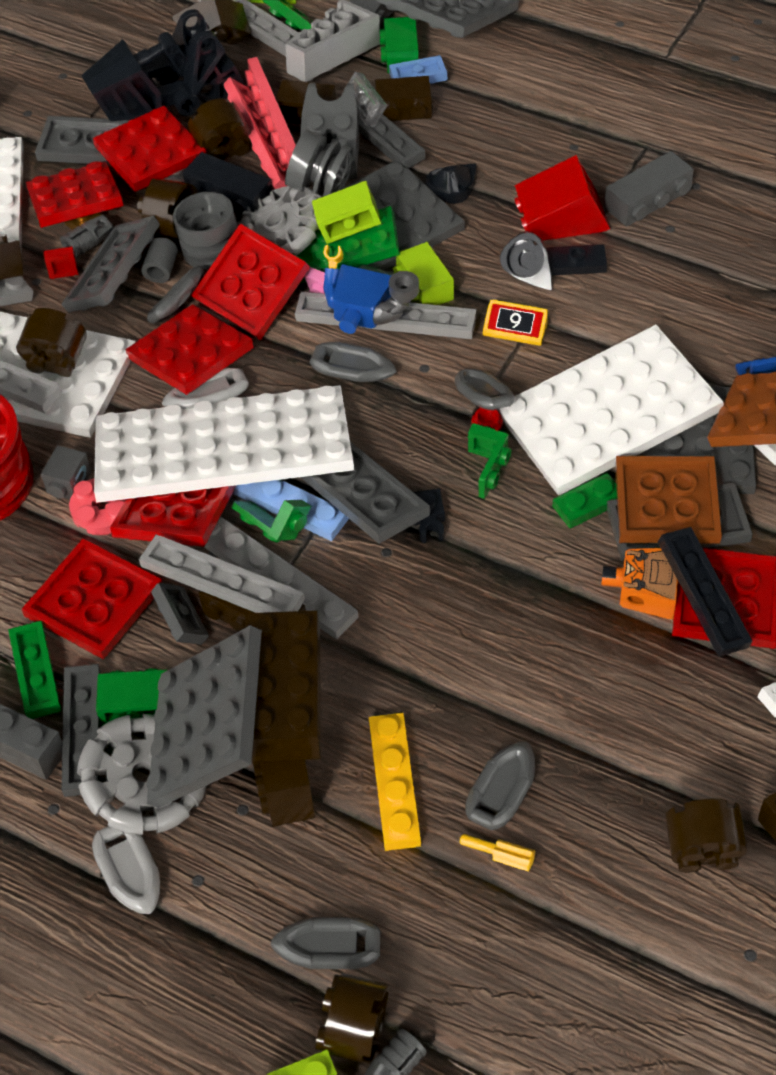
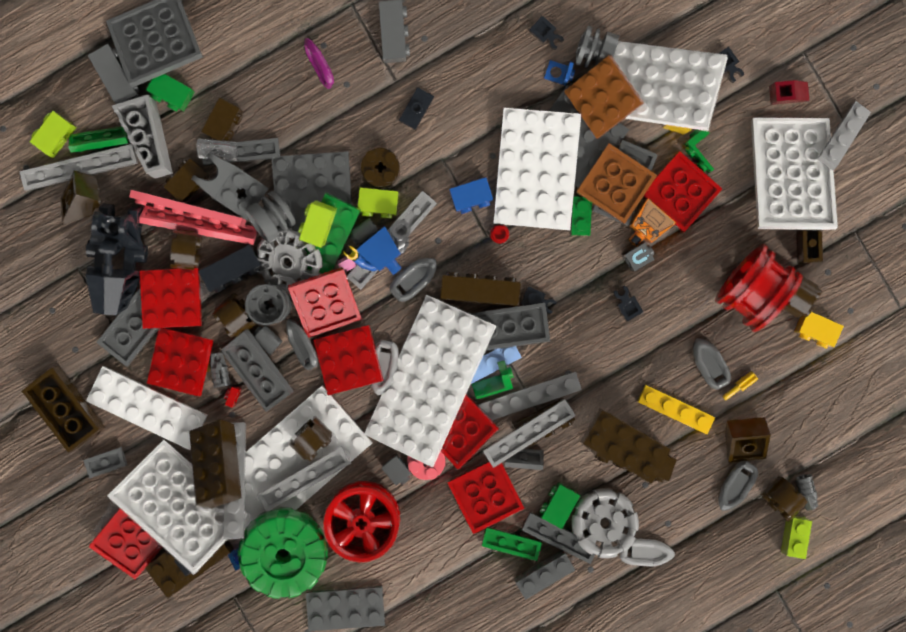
camera: 65 degrees left, 35 degrees up
(205, 718) = (617, 489): dark grey plate -> none
(391, 424) = (480, 290): none -> dark brown brick
(416, 908) = (747, 439): none -> dark brown slope
(428, 66) = (202, 96): medium blue plate -> none
(452, 183) = (308, 135): black piece -> none
(470, 254) = (372, 160): none -> dark brown brick
(484, 389) = (481, 224): dark grey piece -> none
(492, 445) = (515, 243): green bracket -> none
(507, 623) = (629, 306): none -> black plate
(513, 360) = (471, 195): none -> blue brick
(515, 322) = (443, 174): slope -> none
(527, 261) = (402, 138): black piece -> none
(547, 147) = (319, 63): none -> magenta piece
(561, 202) = (374, 90): red slope -> none
(588, 593) = (639, 257): none -> dark grey brick
(668, 742) = (759, 288): none -> red wheel
(679, 910) = (819, 329): none -> yellow brick
(705, 592) = (681, 206): black plate -> none

